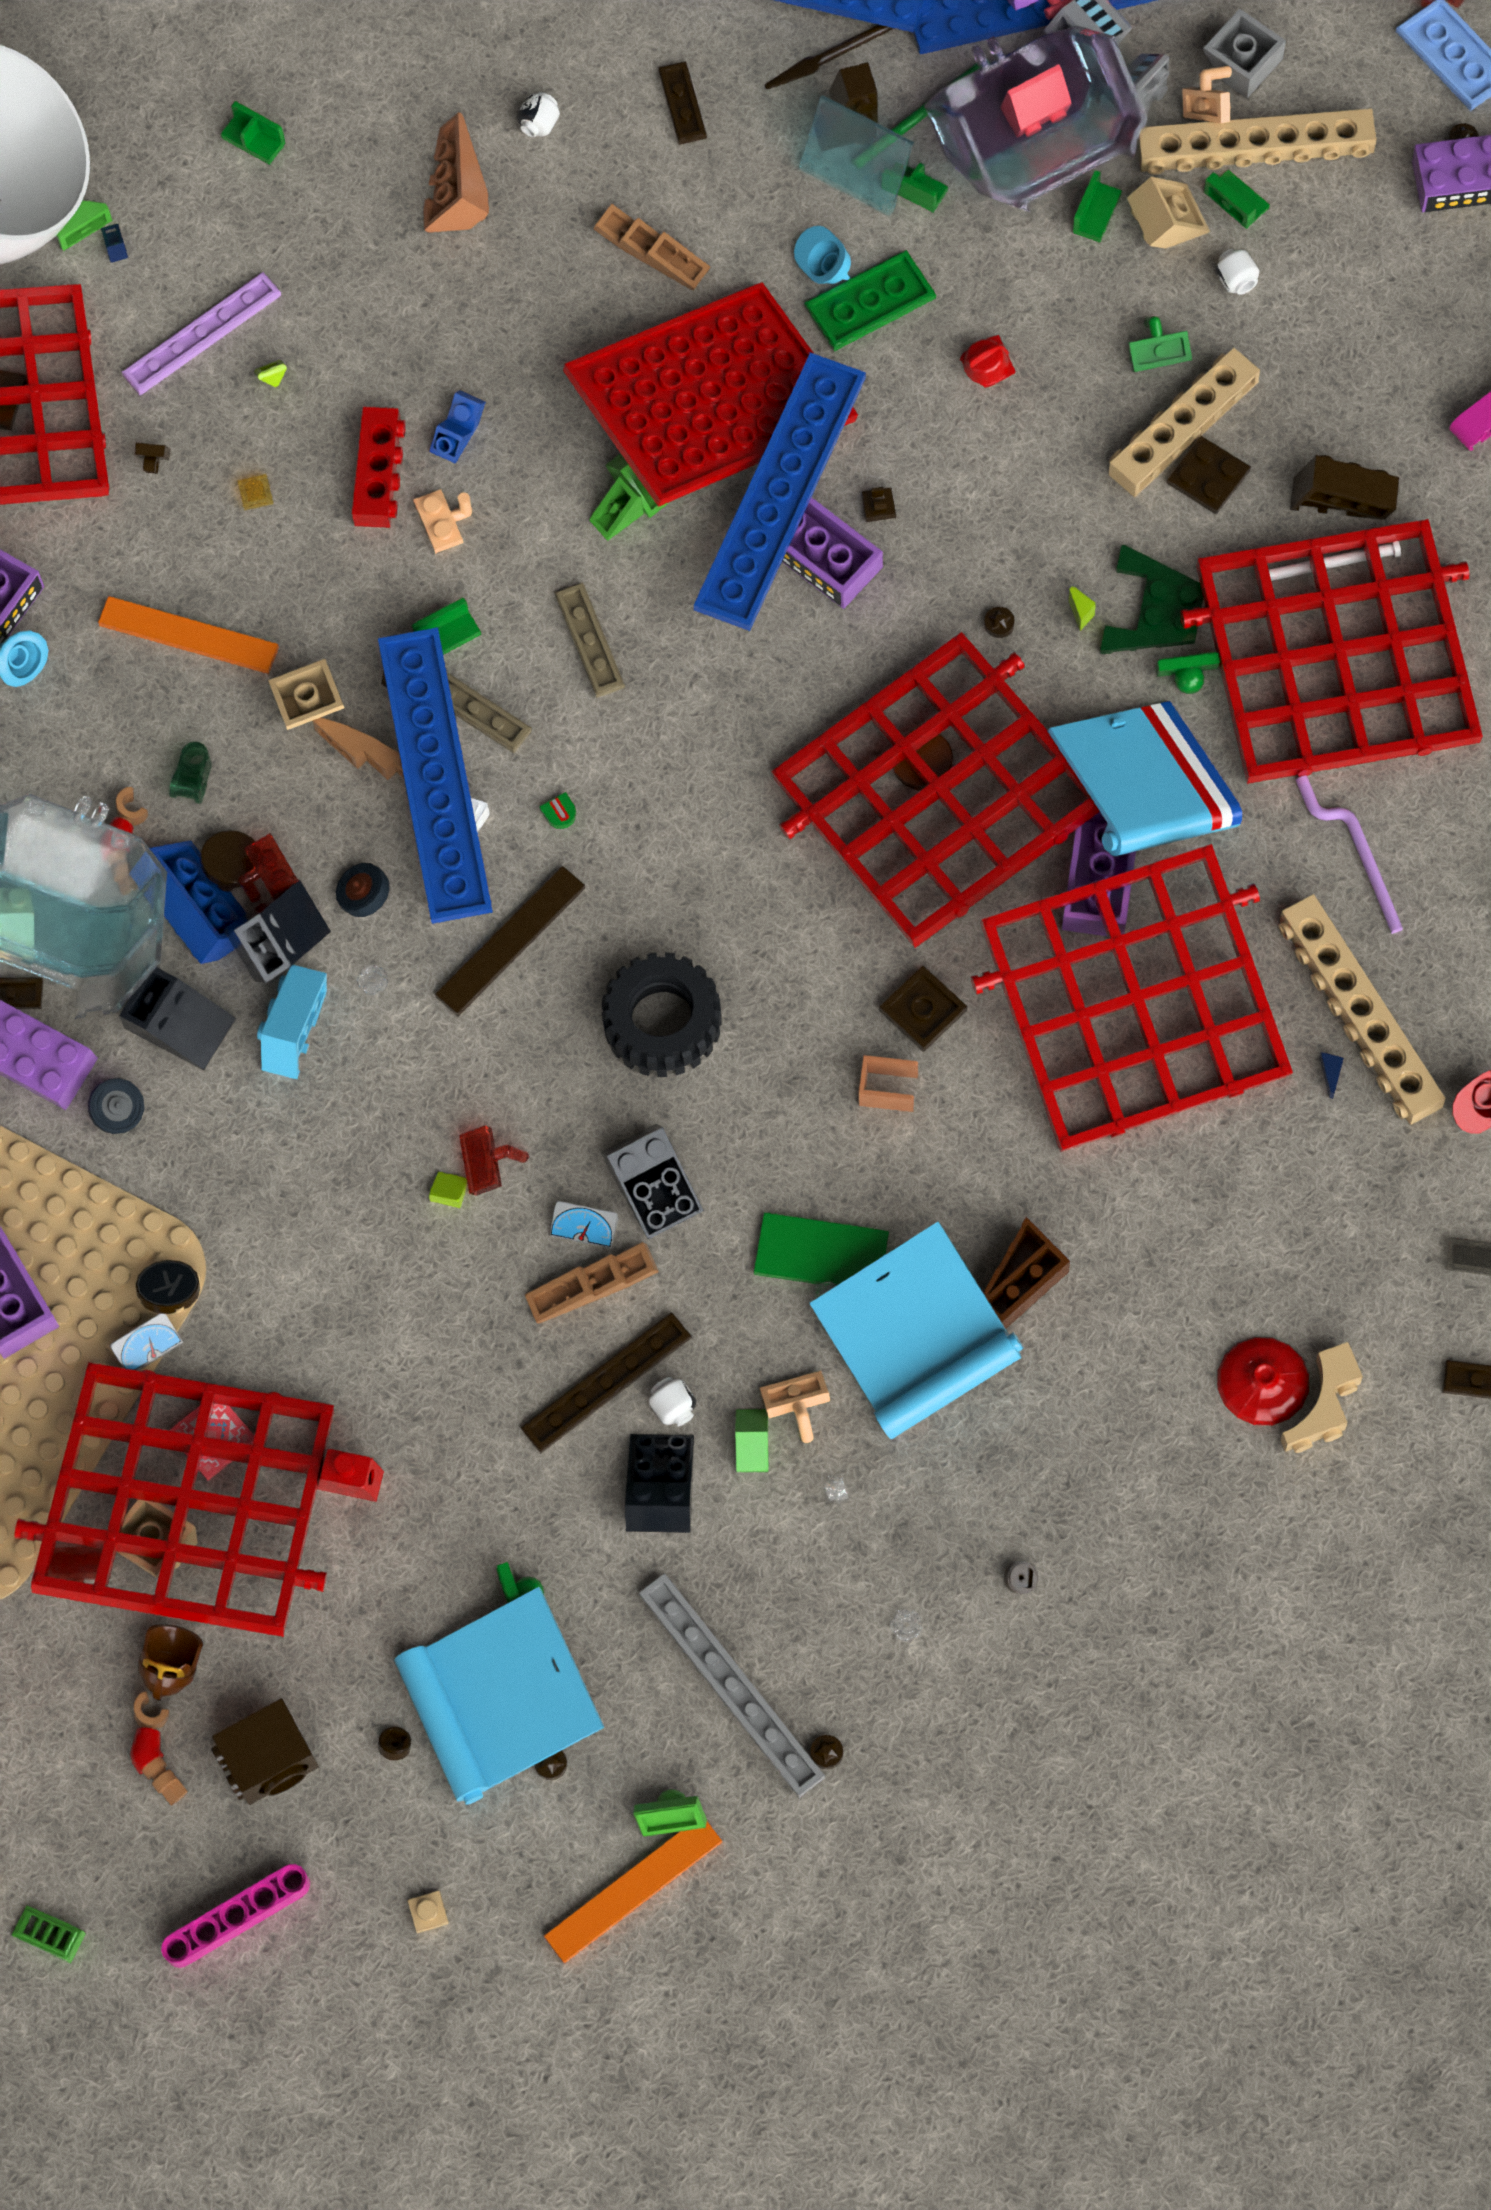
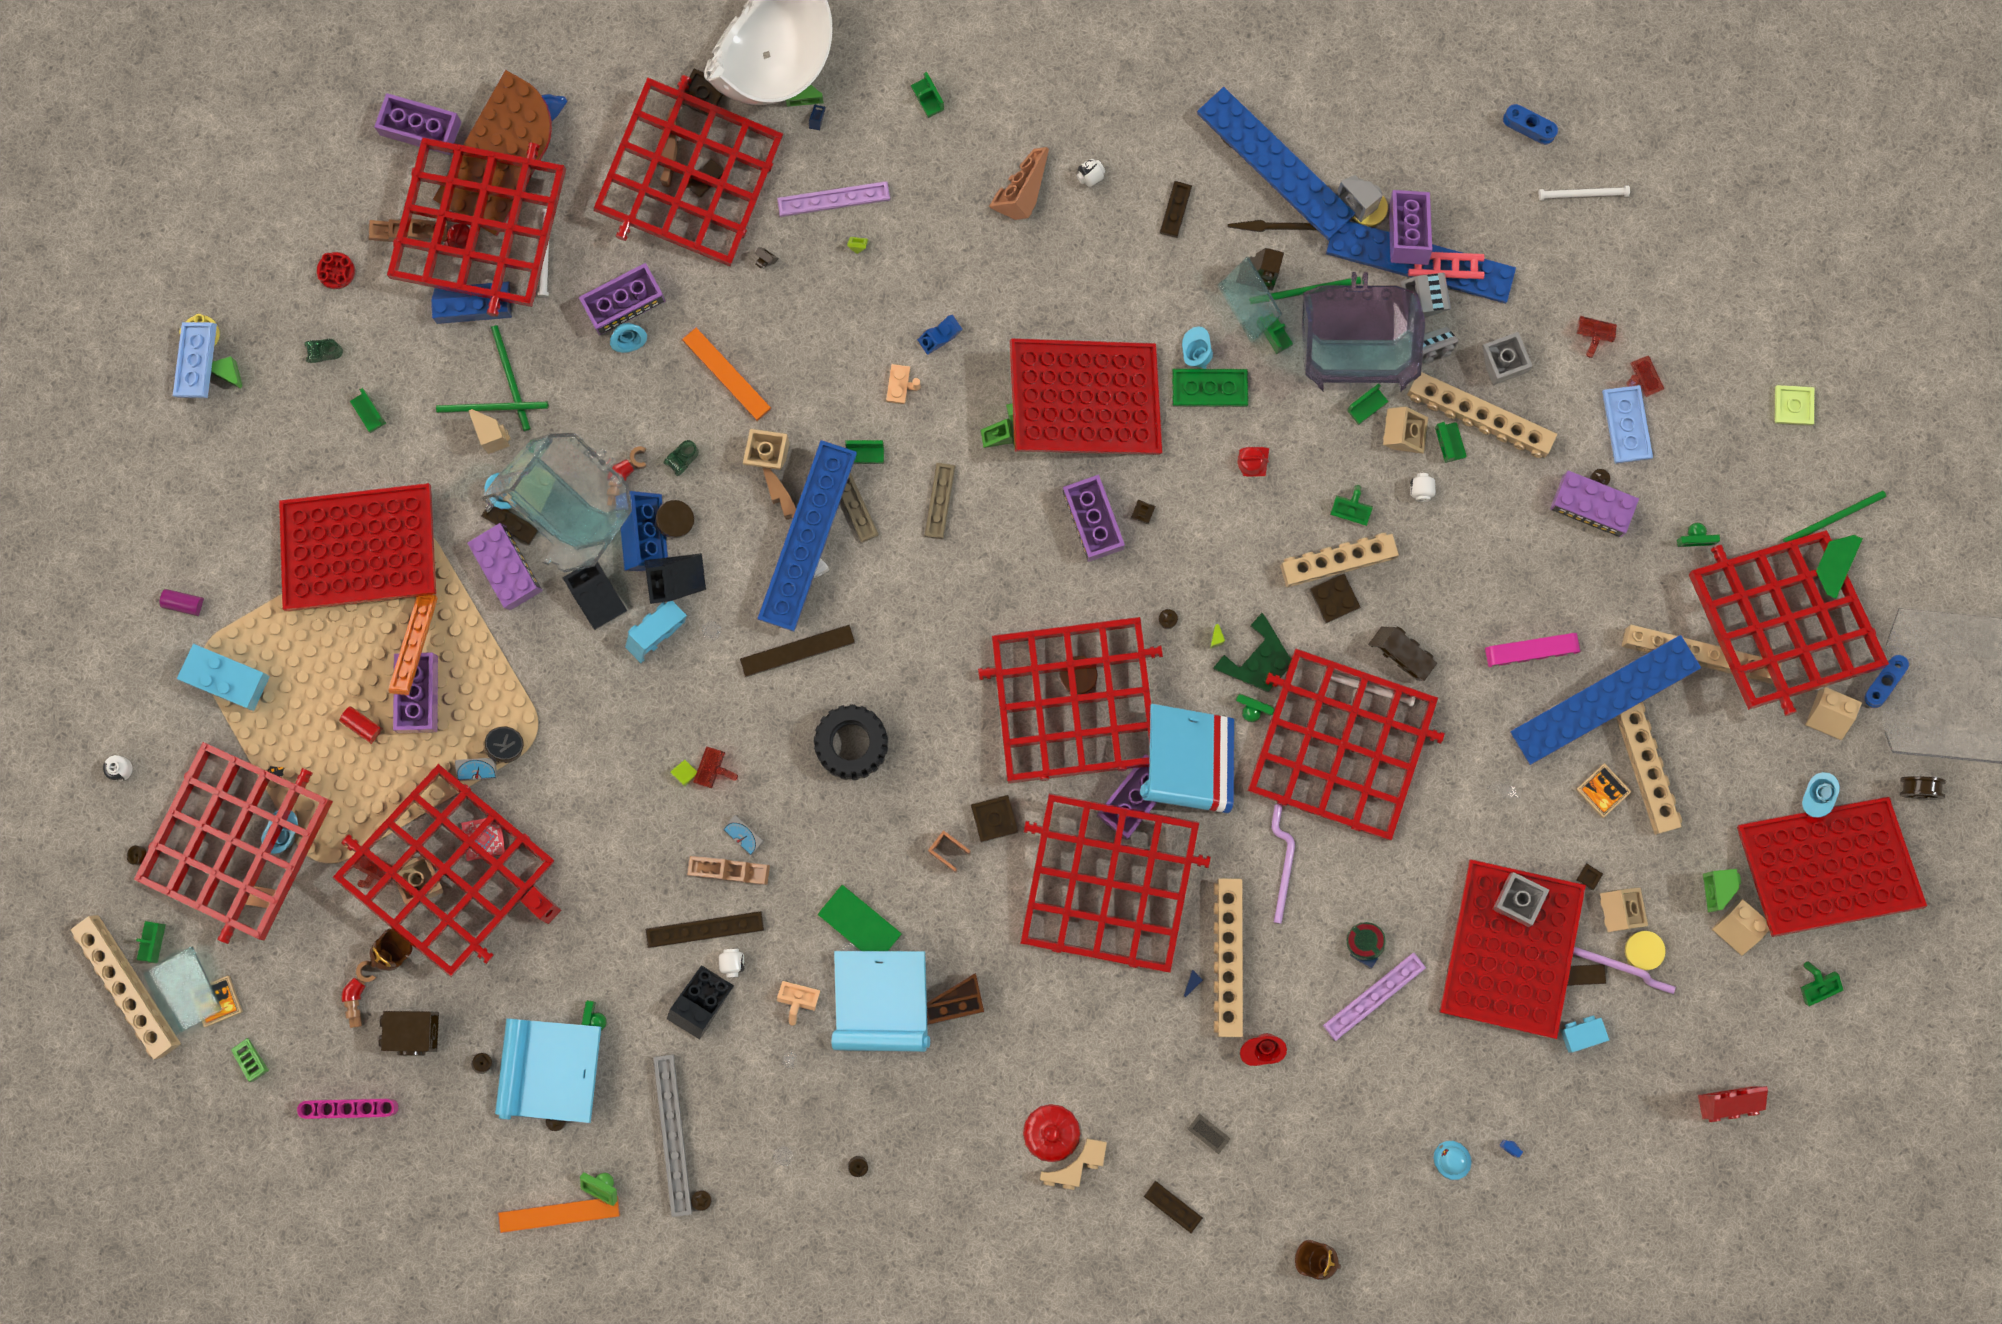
camera: 25 degrees right, 10 degrees up
(116, 1106) = (535, 625): black wheel -> none
(255, 492) = (809, 310): clear yellow plate -> none
(269, 866) = (690, 537): clear red plate -> none
(362, 890) = (734, 577): black wheel -> none
(375, 425) = (894, 308): red brick -> none
(428, 1911) = (447, 1163): tan plate -> none
(559, 811) = (866, 591): green tile -> none
(650, 247) = (1107, 288): medium nougat slope -> none
(652, 1180) = (793, 831): black slope -> none
(751, 1440) = (761, 1006): slope -> none
(779, 491) = (1088, 478): blue plate -> none
(1037, 102) = (1369, 325): coral slope -> none
(1207, 103) = (1464, 375): light nougat plate -> none

